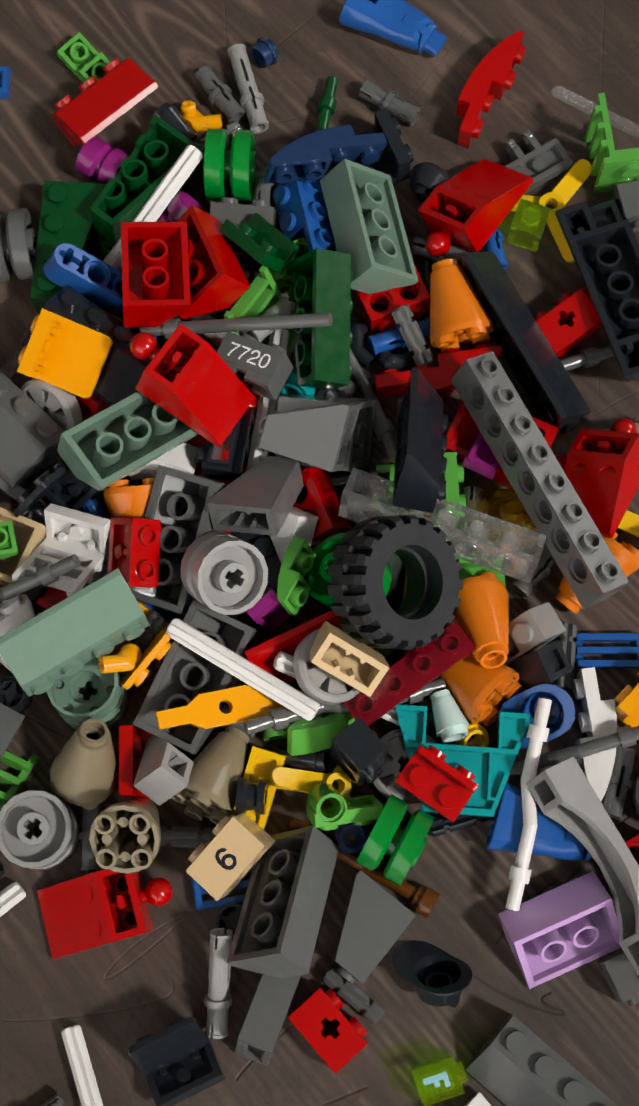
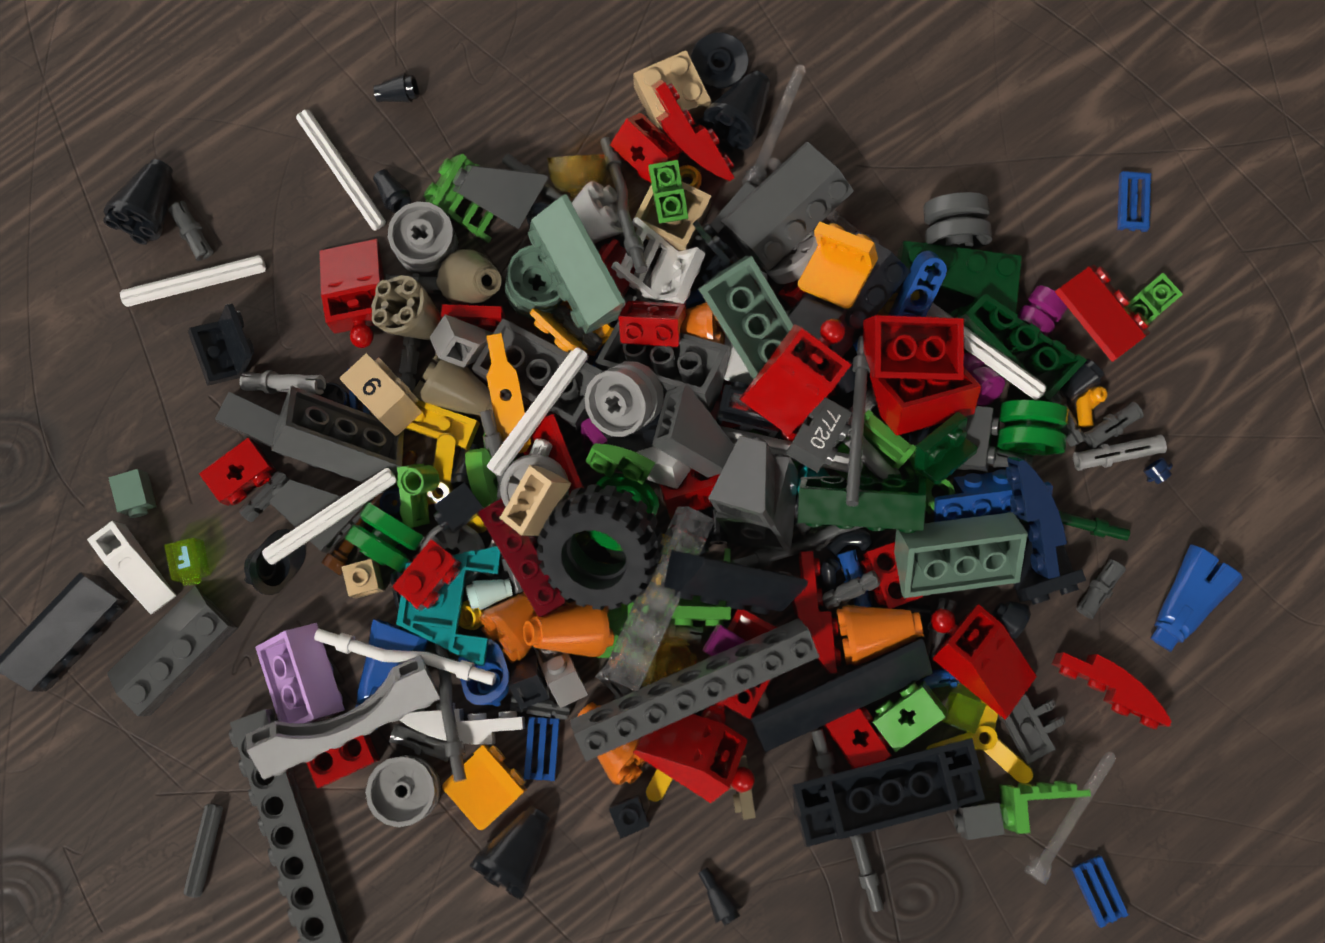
camera: 90 degrees right, 5 degrees up
(124, 661) = (553, 310): light orange arm -> none
(251, 796) = (431, 416): black wheel -> none
(377, 905) = (329, 516): none -> white axle
(442, 864) = (363, 578): none -> tan brick
(552, 278) = (900, 730): none -> bright green brick

